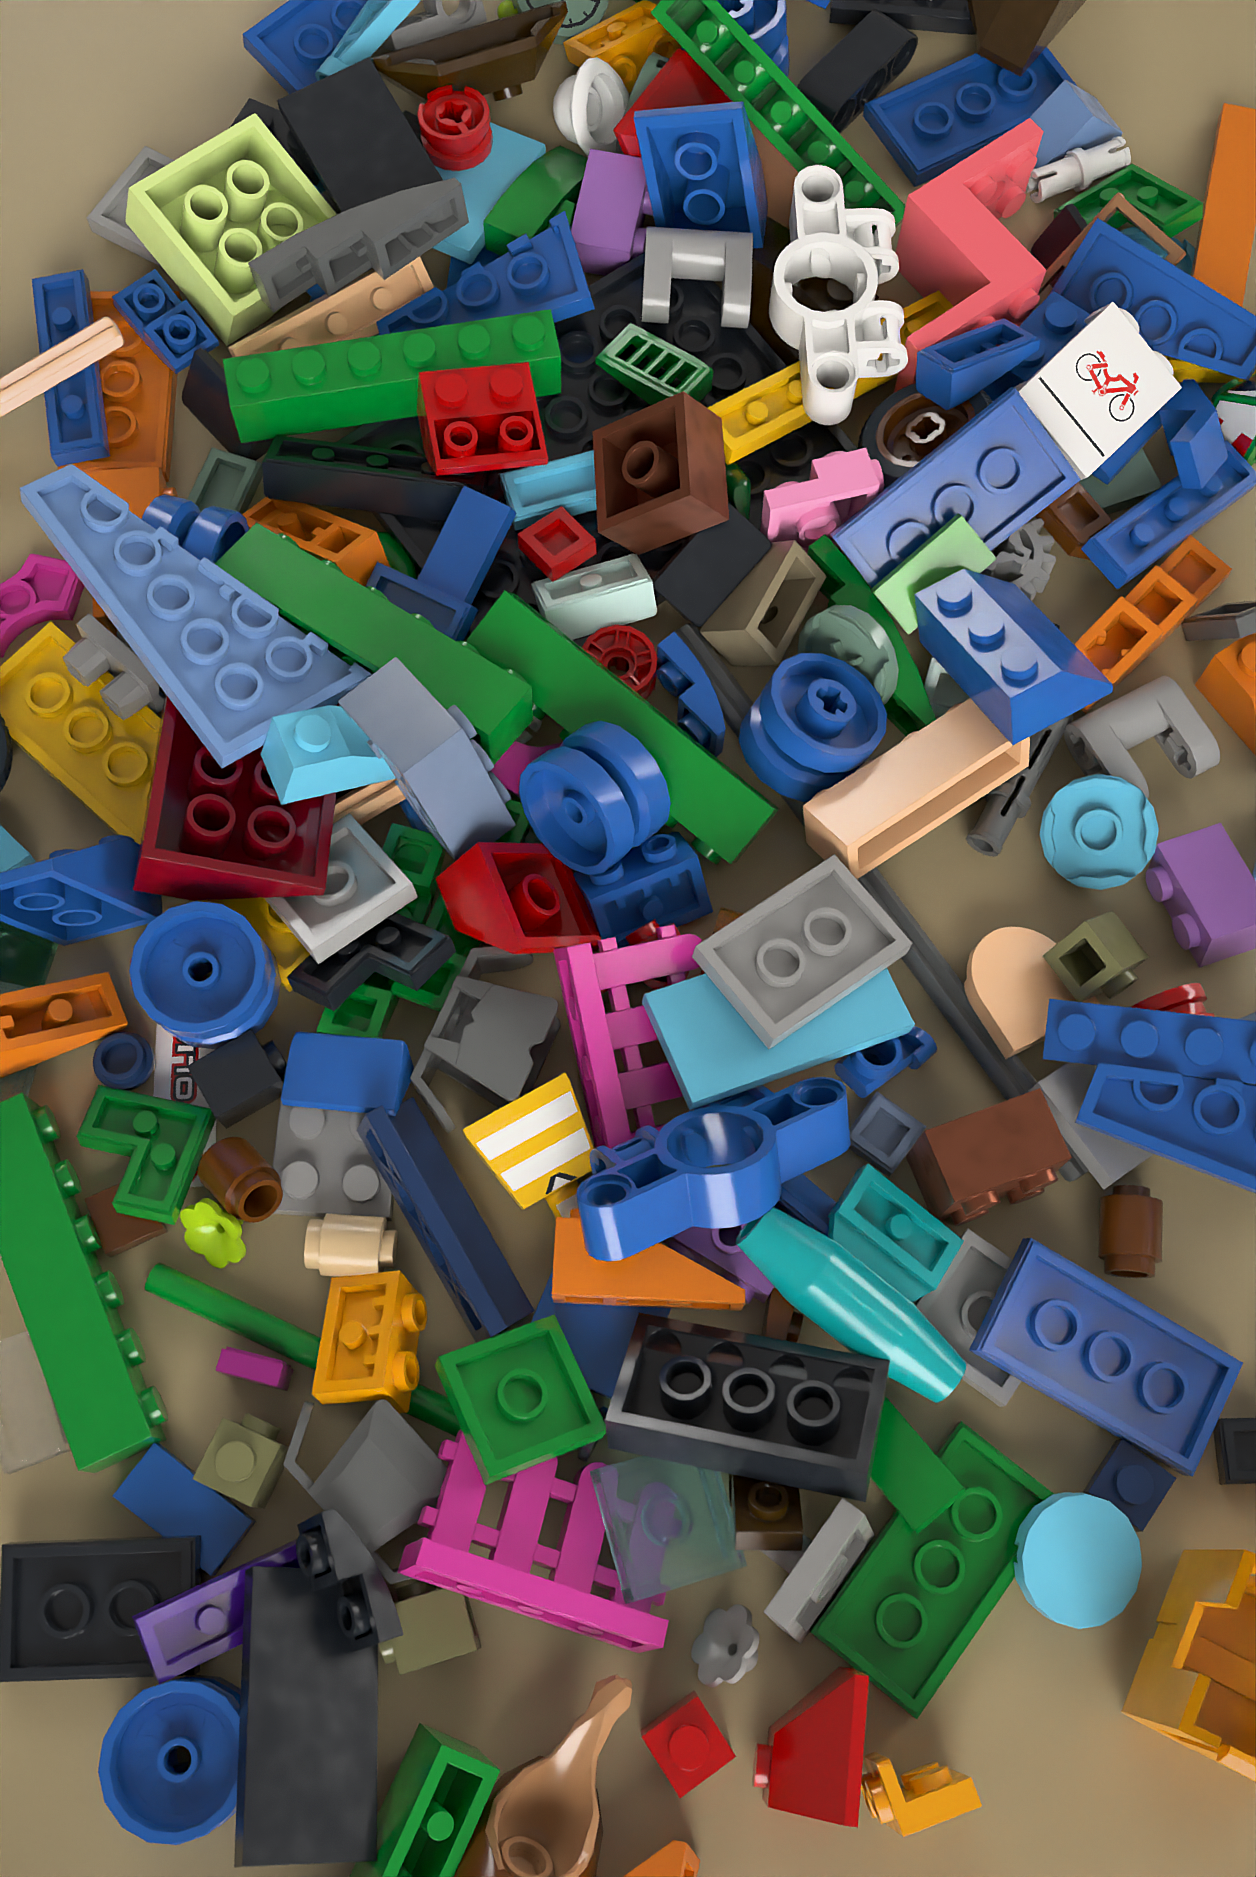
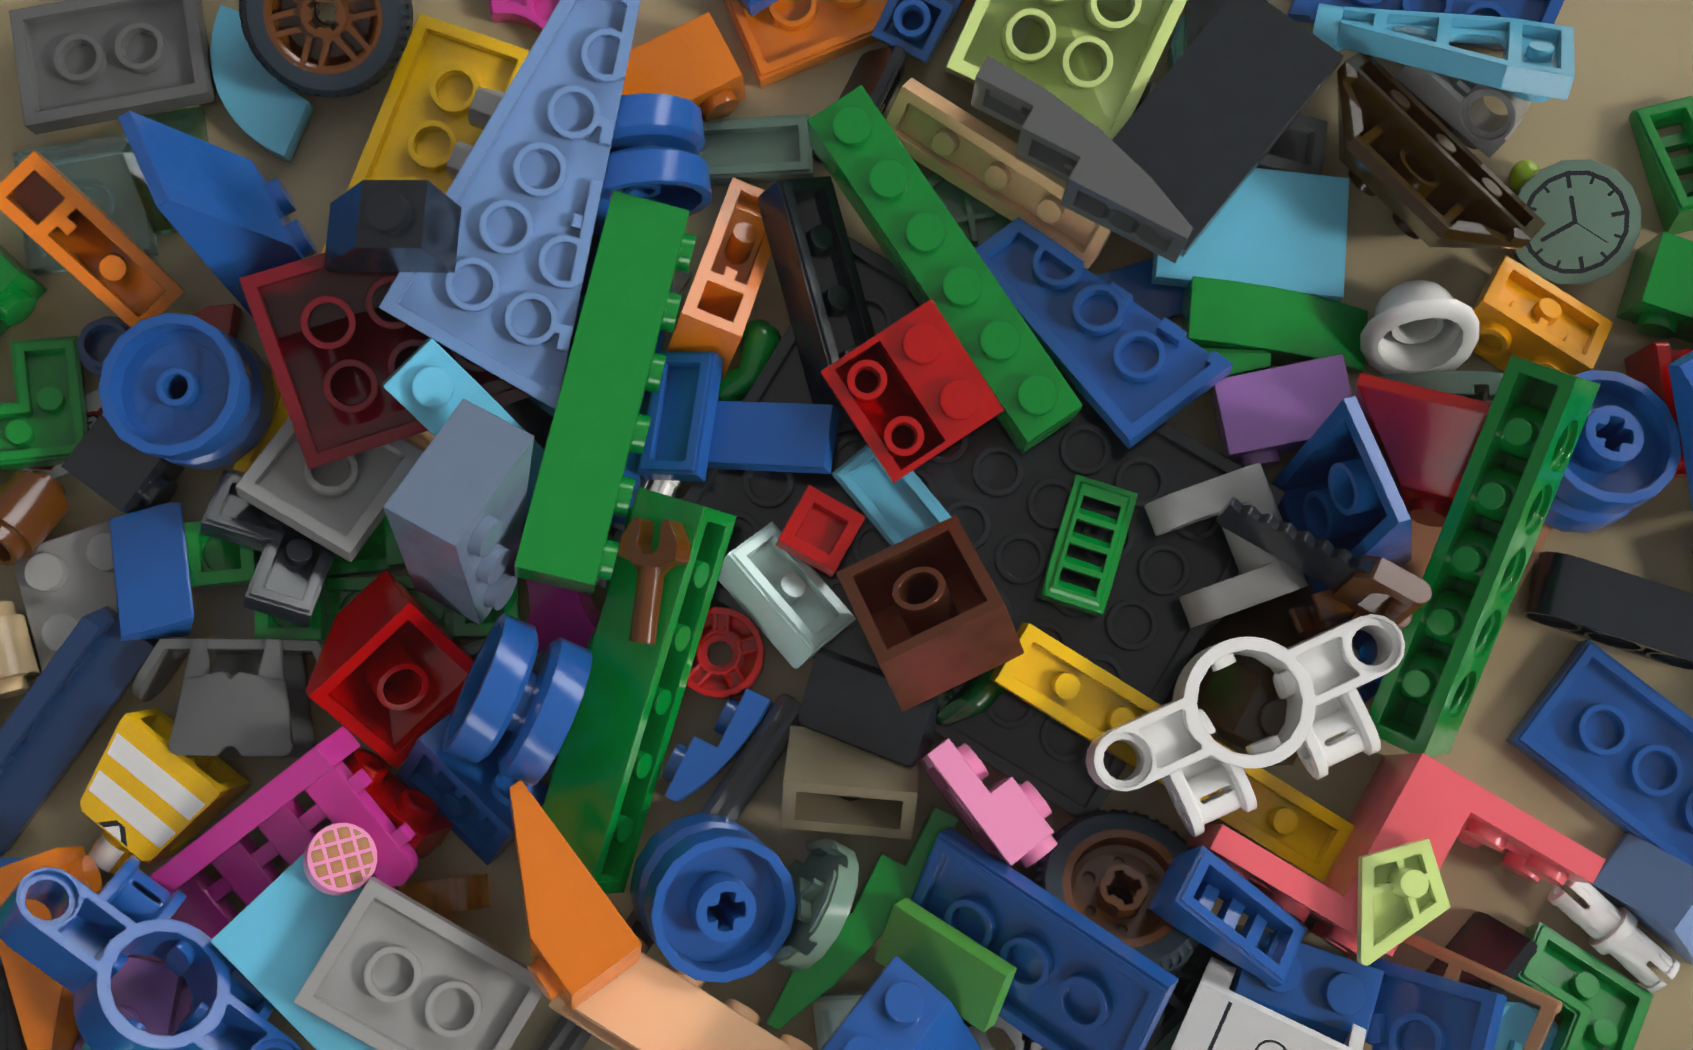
camera: 70 degrees right, 10 degrees up
(163, 711) = (393, 228): none -> black slope
(455, 128) = (1312, 216): red wheel -> none
(539, 651) = (651, 569): none -> reddish brown bar
(667, 974) = (340, 859): none -> tile
(750, 194) = (1355, 580): none -> piece
(776, 220) = (1322, 615): none -> reddish brown bar
(778, 811) = (570, 921): none -> orange slope
(1006, 243) = (1396, 897): none -> yellowish green piece

